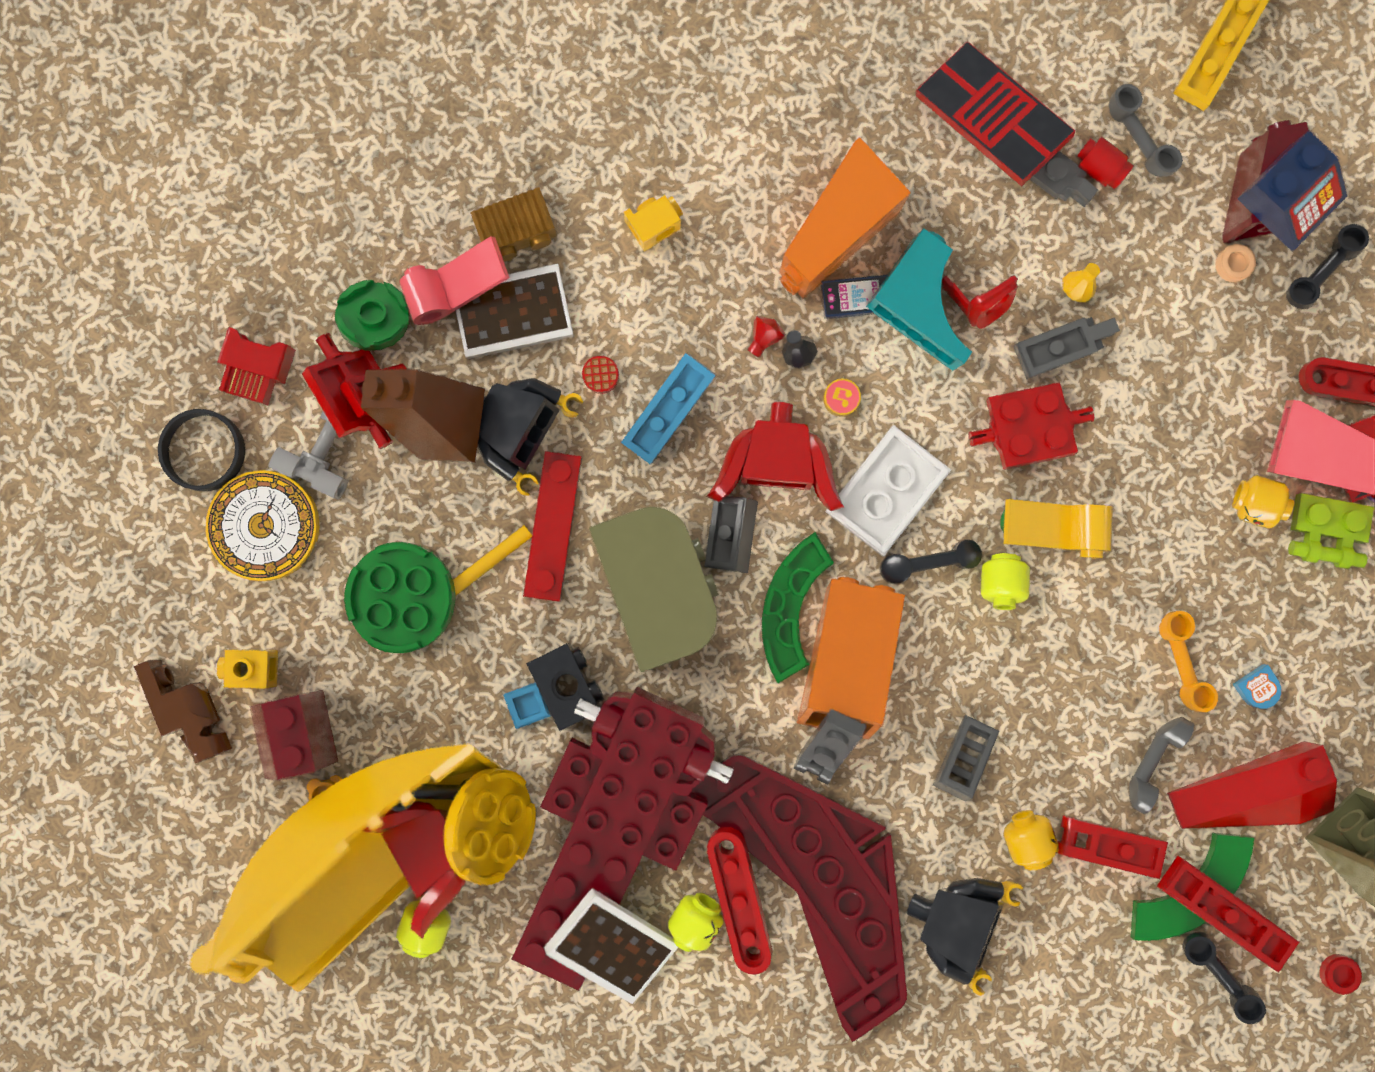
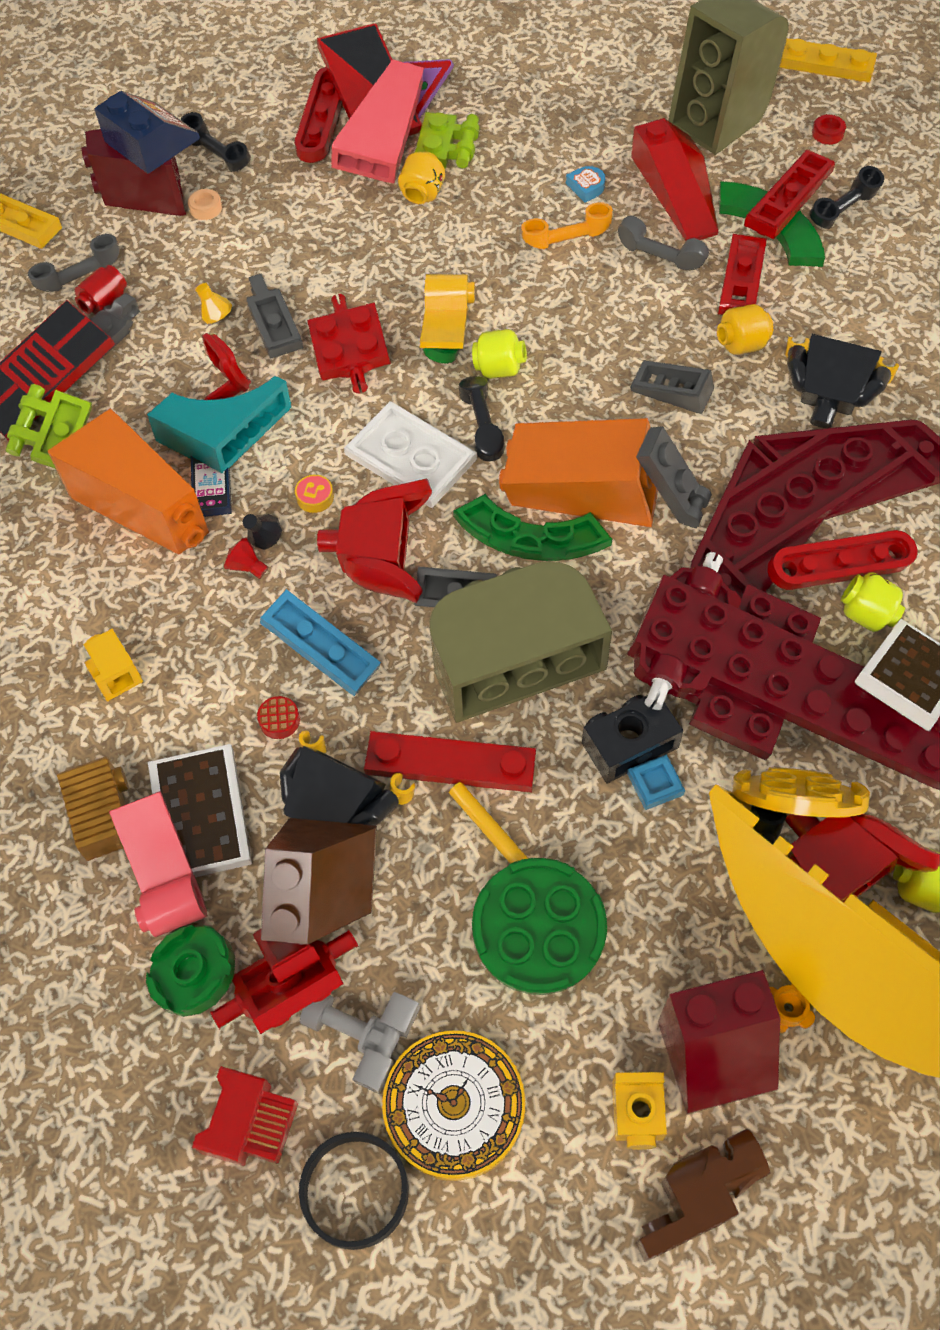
camera: 85 degrees left, 25 degrees down
(919, 144) = (62, 418): none -> lime plate

